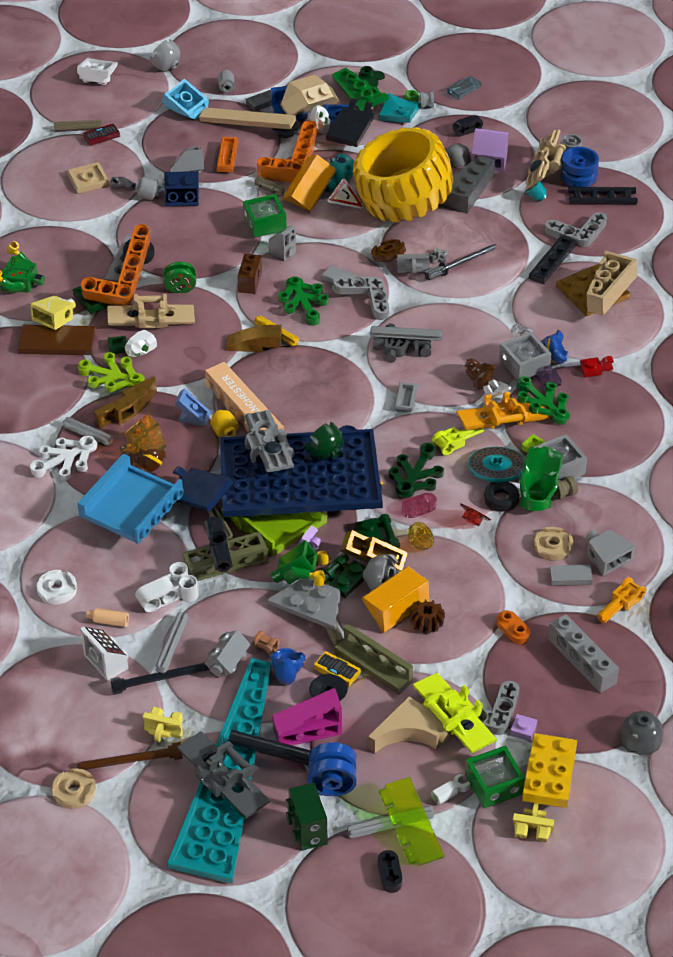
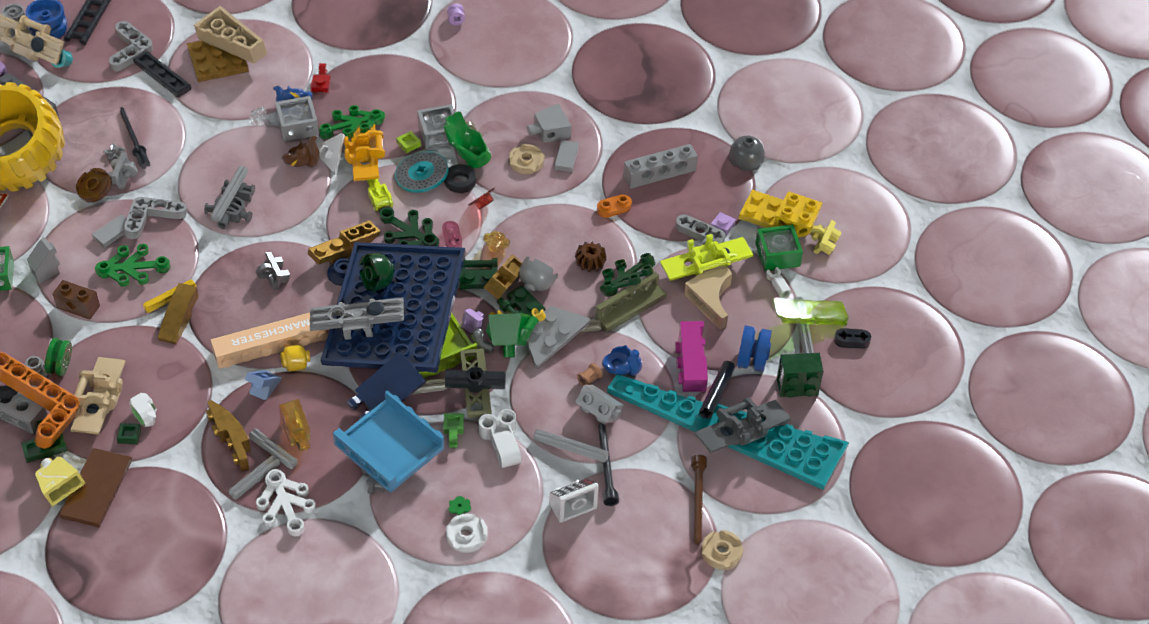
camera: 80 degrees left, 5 degrees up
(84, 575) = (459, 505): none -> green plant
(109, 617) = (522, 492): light nougat cylinder -> none
(119, 438) = (273, 448): none -> light grey axle
(130, 379) = (175, 441): lime plant -> none
(146, 460) = (323, 428): reddish brown hair -> none
(163, 726) = (670, 468): light yellow hips -> none
(173, 551) = (453, 425): none -> bright green plate
(289, 545) = (477, 337): none -> flat silver arm
(326, 384) = (272, 271): none -> flat silver hips
(327, 682) = (657, 339): black piece -> none
(334, 665) = (630, 331): tile -> none
(385, 431) = (343, 245): none -> pearl gold slope
(395, 597) = (570, 267): light orange slope -> none
(405, 397) = (306, 216): light grey tile -> none
(409, 648) = (632, 276): none -> dark green plant
(548, 375) = (323, 113): clear purple tile -> none
(623, 597) = (604, 127): light orange connector -> none

